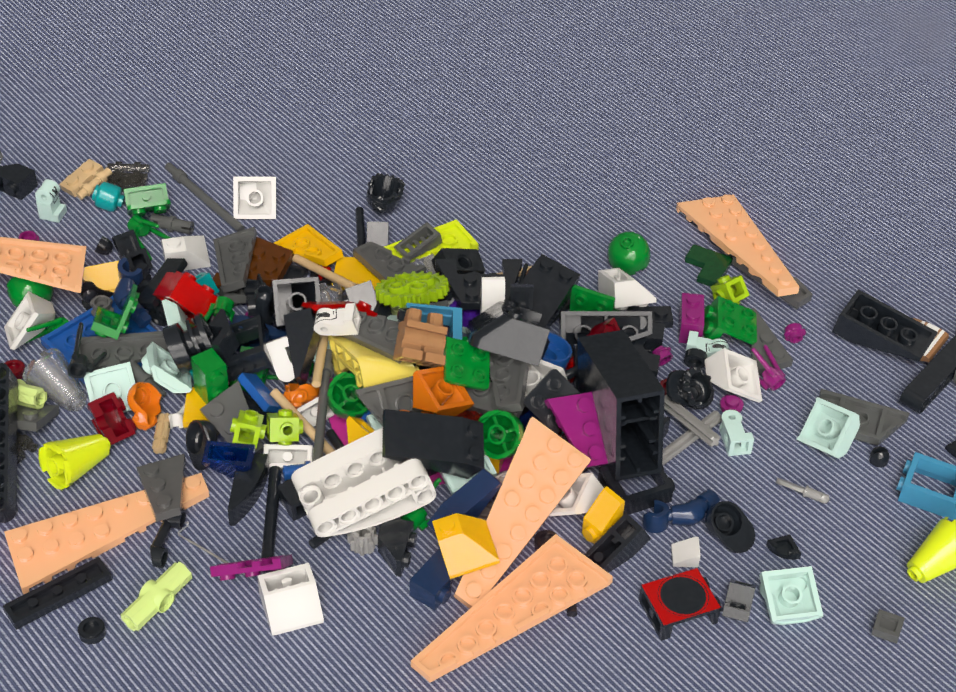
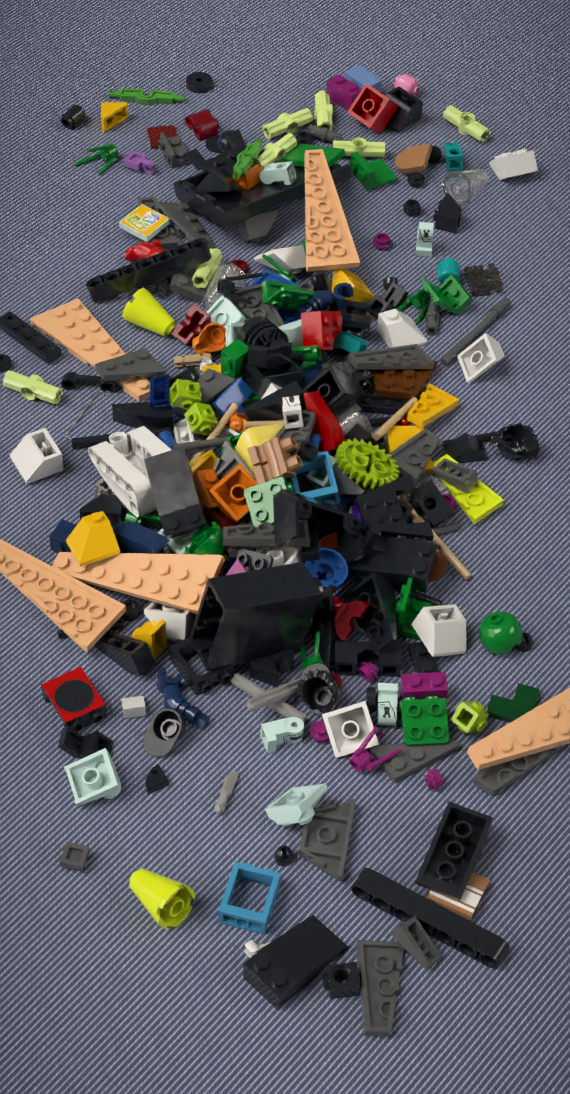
camera: 80 degrees right, 5 degrees up
(84, 179) = (466, 254): tan plate -> none
(250, 567) = (60, 429): magenta wing -> none
(491, 291) = (365, 509): white slope -> none

